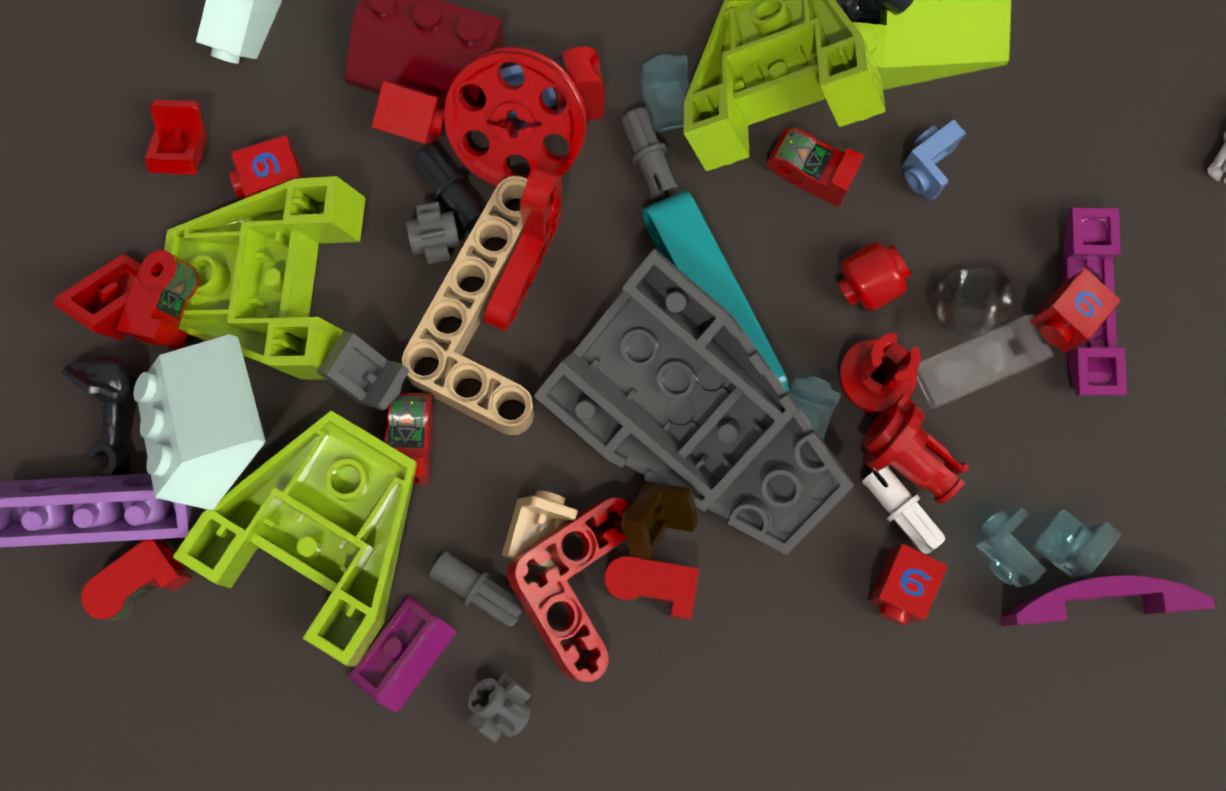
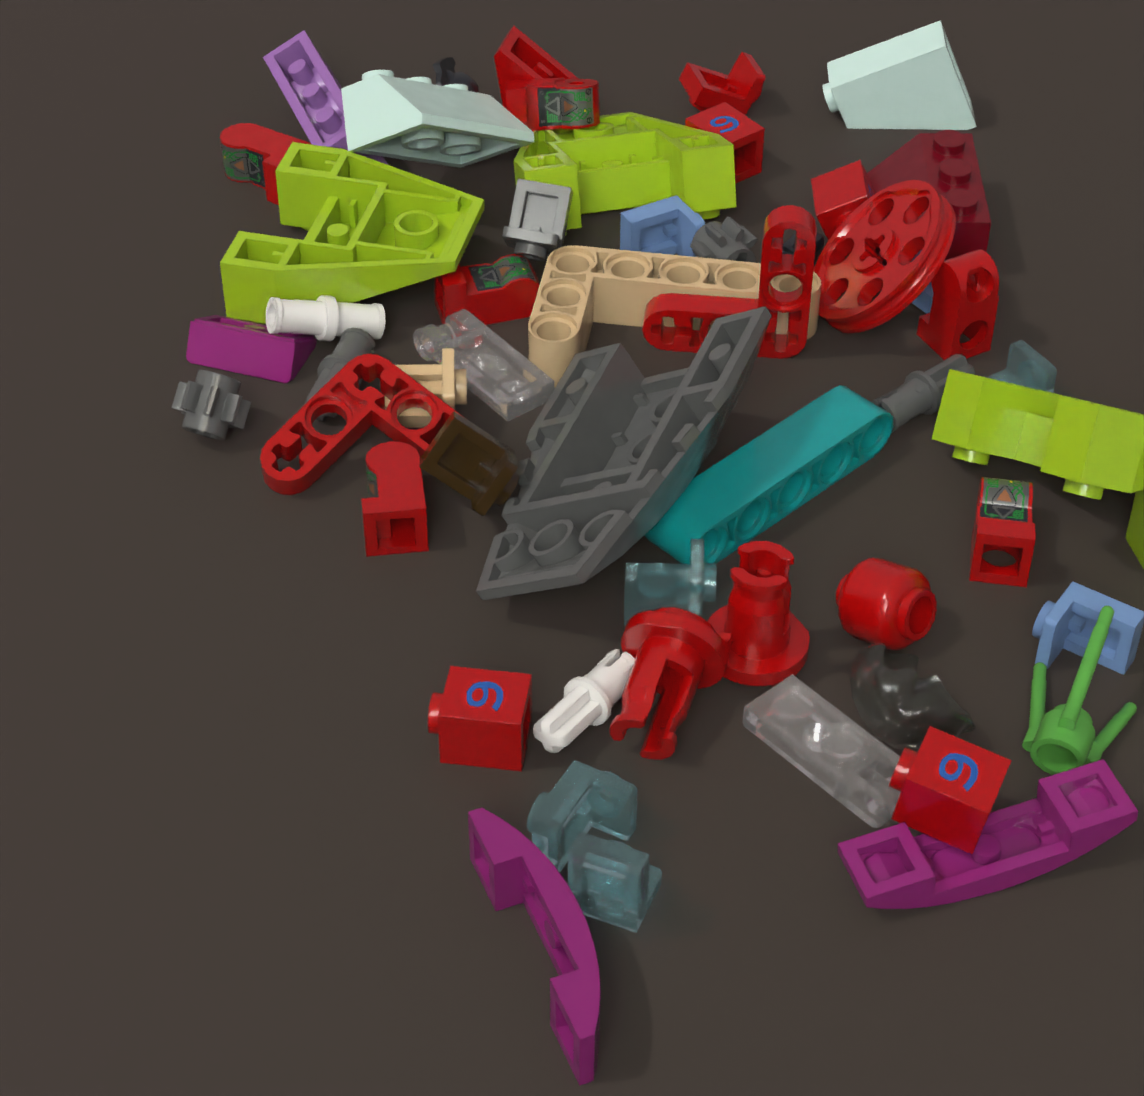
camera: 80 degrees right, 35 degrees down
(375, 278) = (660, 227): none -> medium blue bracket
(411, 586) = (323, 317): none -> white pin
(503, 469) = (492, 366): none -> clear plate
(1017, 215) = (1066, 734): none -> bright green plant

